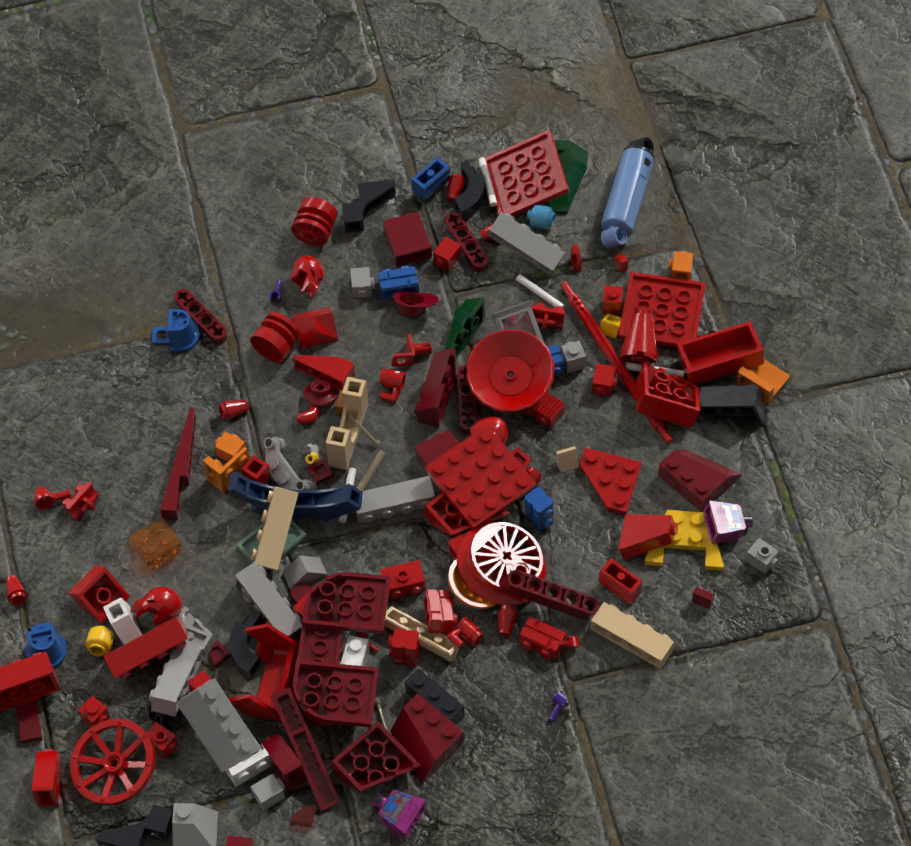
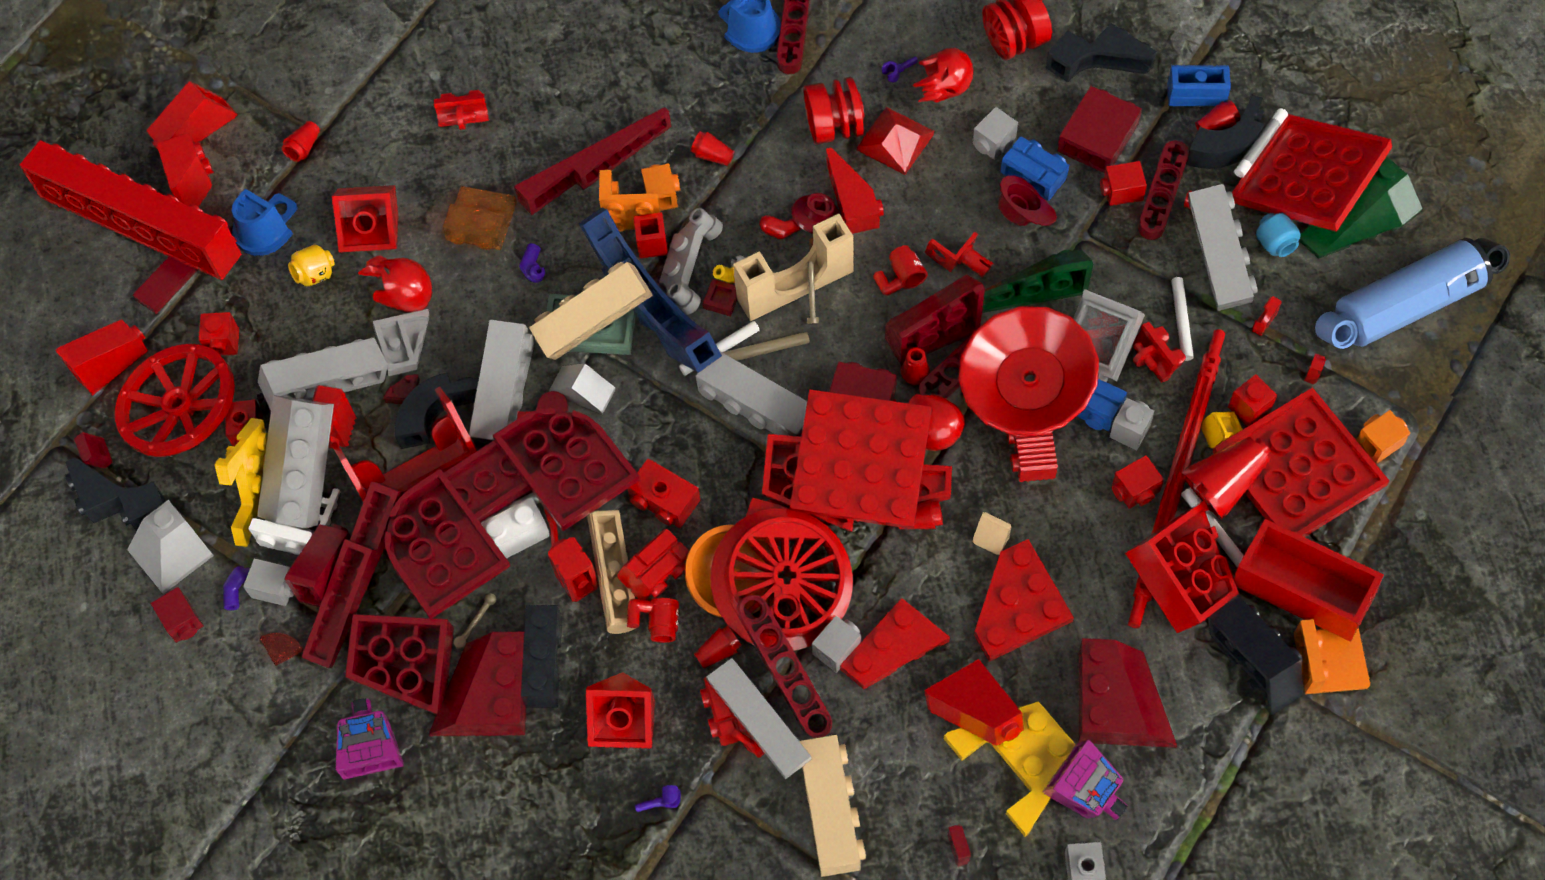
camera: 50 degrees right, 5 degrees up
(44, 499) = (432, 76): red bar -> none
(98, 824) = (93, 450): none -> dark red tile
(122, 620) = (345, 262): white slope -> none
(146, 647) = (331, 313): red slope -> none
(201, 755) = (245, 465): none -> yellow wing
(209, 542) = (529, 266): none -> dark purple arm
(247, 815) = (231, 587): none -> dark purple arm
(450, 419) = (915, 366): none -> red cone
(500, 686) = (620, 713): none -> red slope
(539, 509) = (889, 558): blue brick -> none
(556, 567) = (836, 643): none -> light grey brick
(564, 626) = (758, 718): none -> light grey tile
(578, 545) = (893, 643): none -> red wing
(620, 581) = (885, 730): red brick -> none

